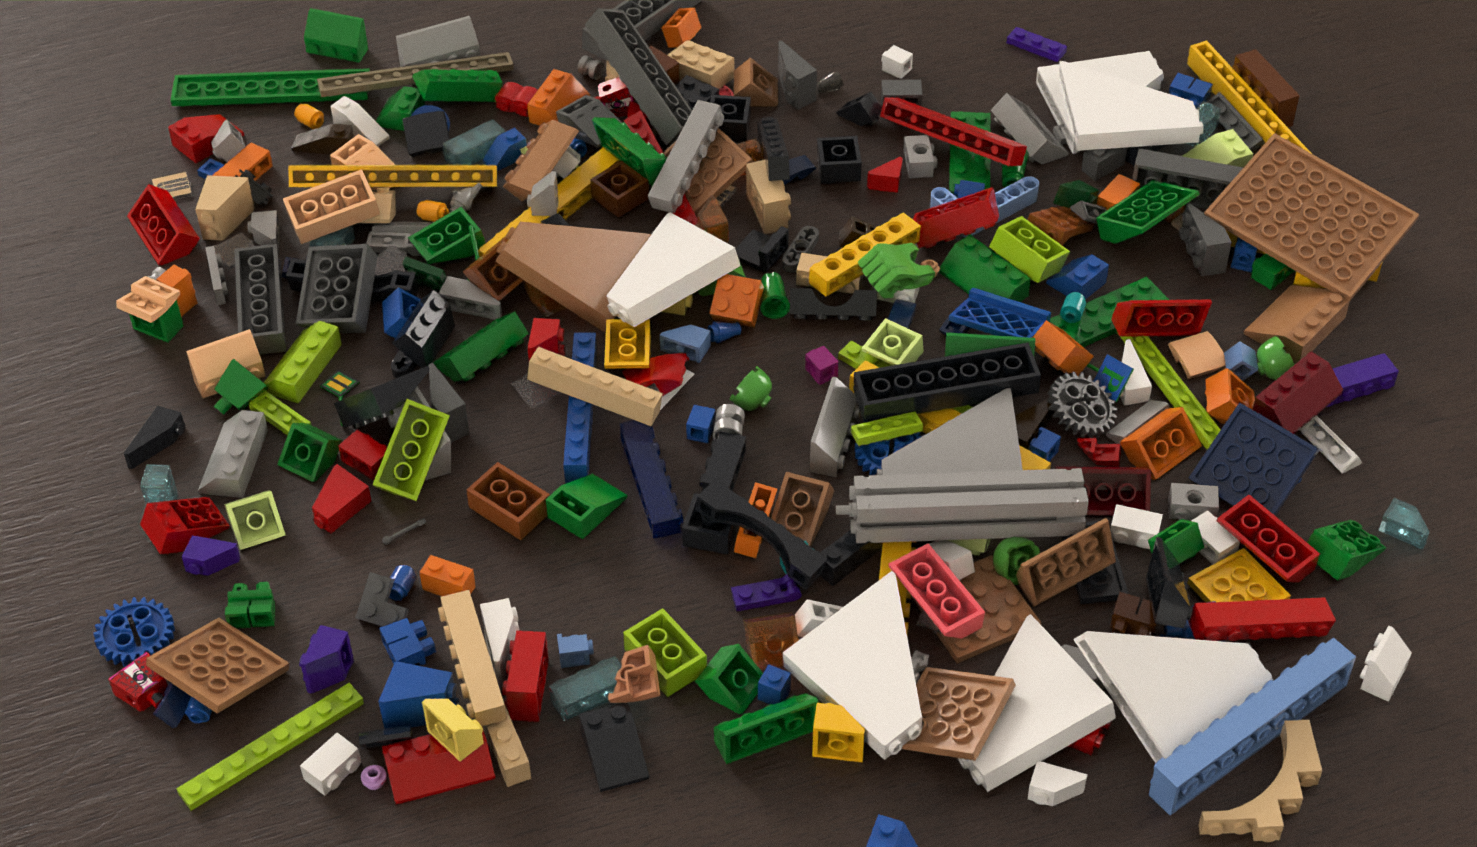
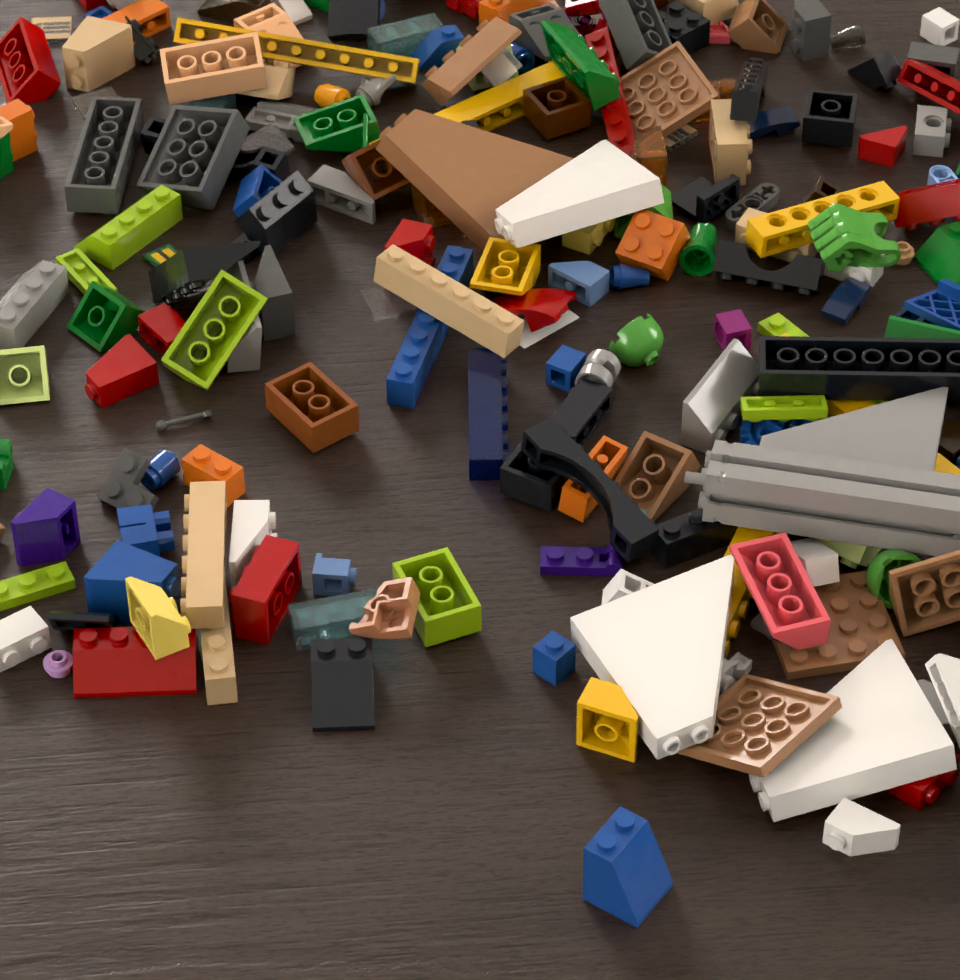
camera: 15 degrees right, 5 degrees down
(212, 359) = (43, 211): light nougat slope -> none
(217, 275) = (67, 123): light grey plate -> none
(237, 387) = (47, 237): green torso -> none
(265, 227) = (138, 83): light grey slope -> none
(425, 273) = (298, 156): dark green plate -> none
(482, 347) = (338, 246): green slope -> none
(544, 196) = (462, 97): light grey slope -> none
(583, 504) = (397, 426): green slope -> none
(686, 156) = (641, 81): light grey brick -> none
(731, 678) = (504, 640): green slope -> none
(736, 115) = (715, 51): black brick -> none
(765, 727) = (524, 700): green slope -> none
(769, 637) = (561, 601): clear orange slope -> none
(894, 344) = (826, 318): yellowish green slope -> none

